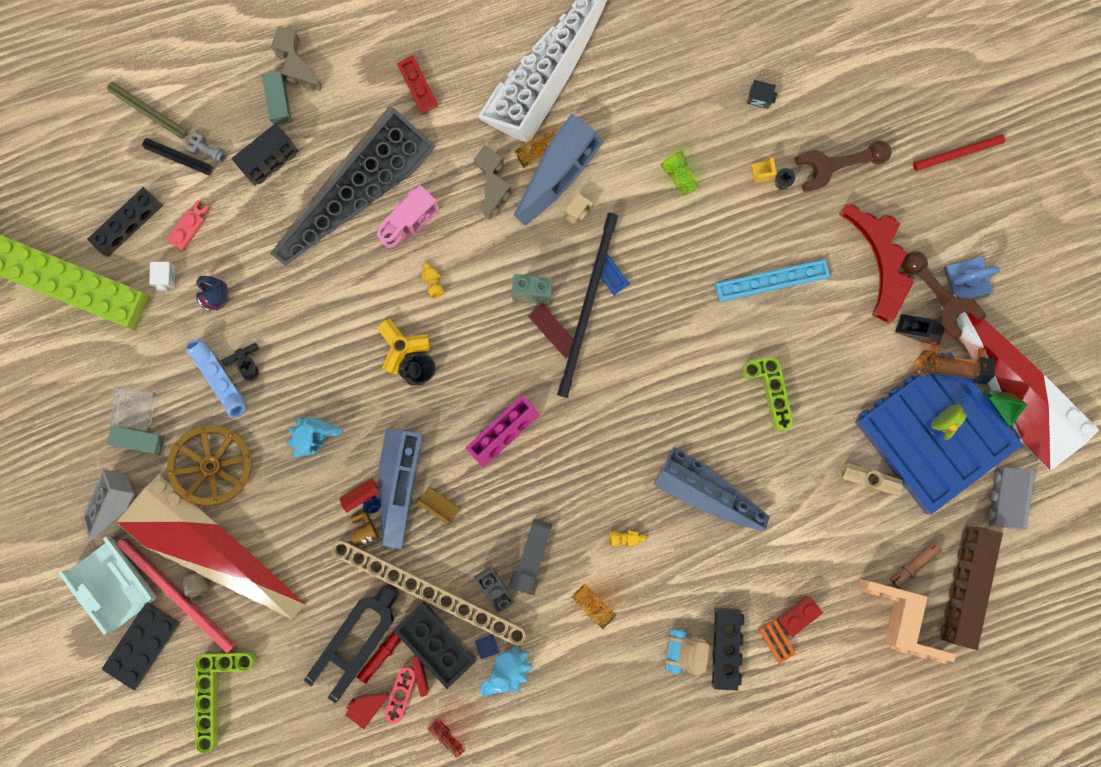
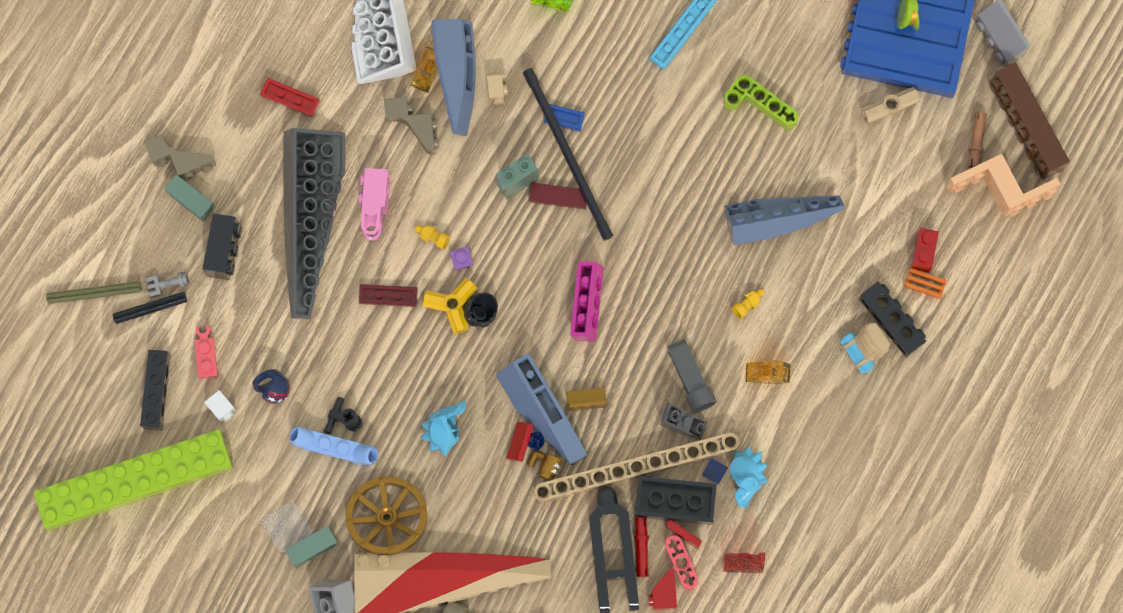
camera: 40 degrees left, 5 degrees down
(360, 297) = (388, 295): none -> dark red tile
(439, 316) = (461, 258): none -> medium lavender plate

